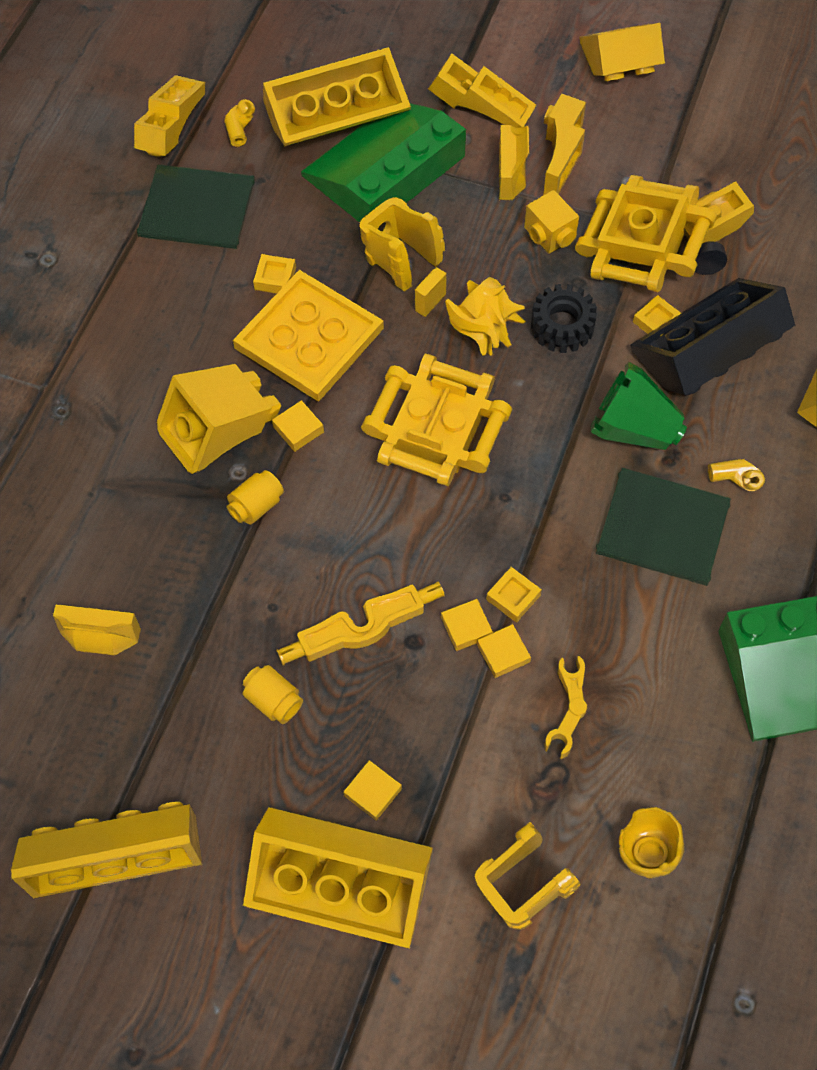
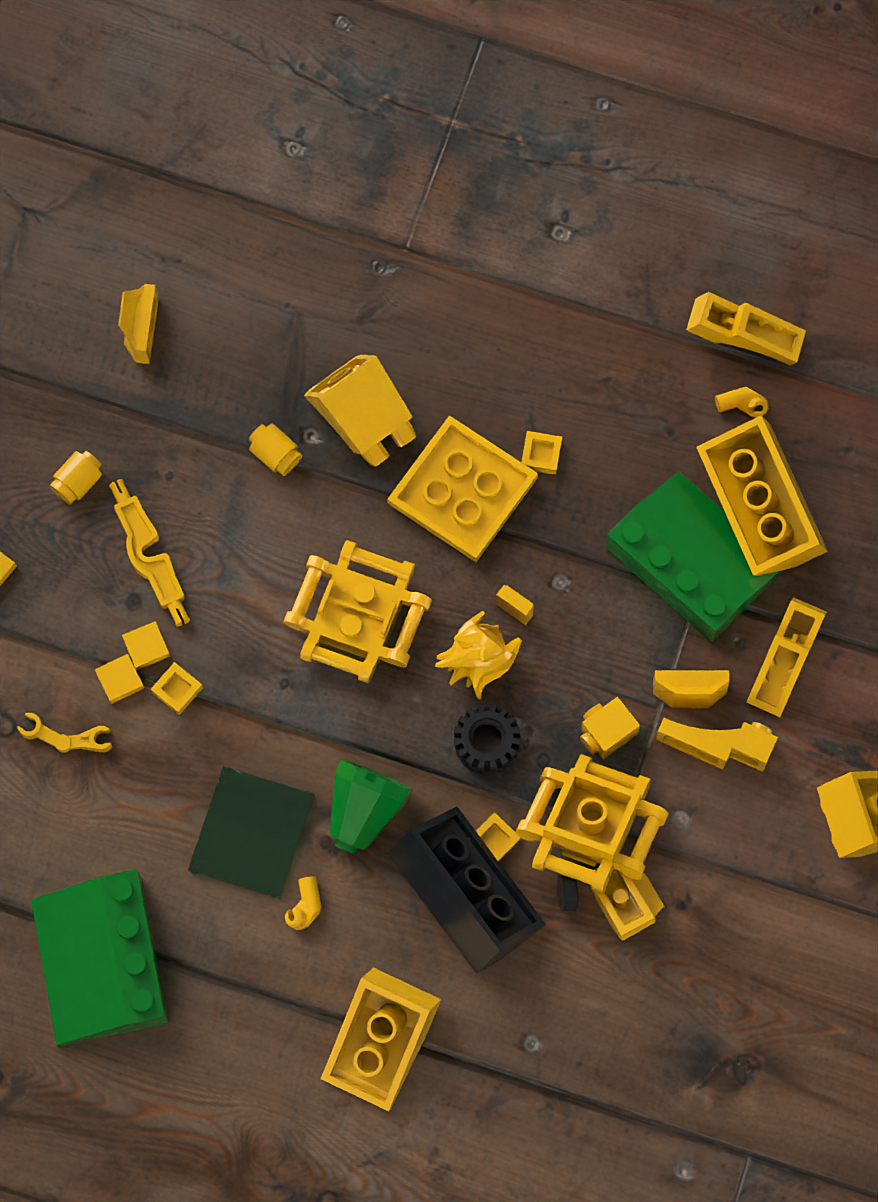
camera: 90 degrees right, 10 degrees up
(196, 206) = (631, 369): clear green piece -> none
(298, 425) = (359, 485): yellow tile -> none
(412, 227) = (577, 541): yellow piece -> none

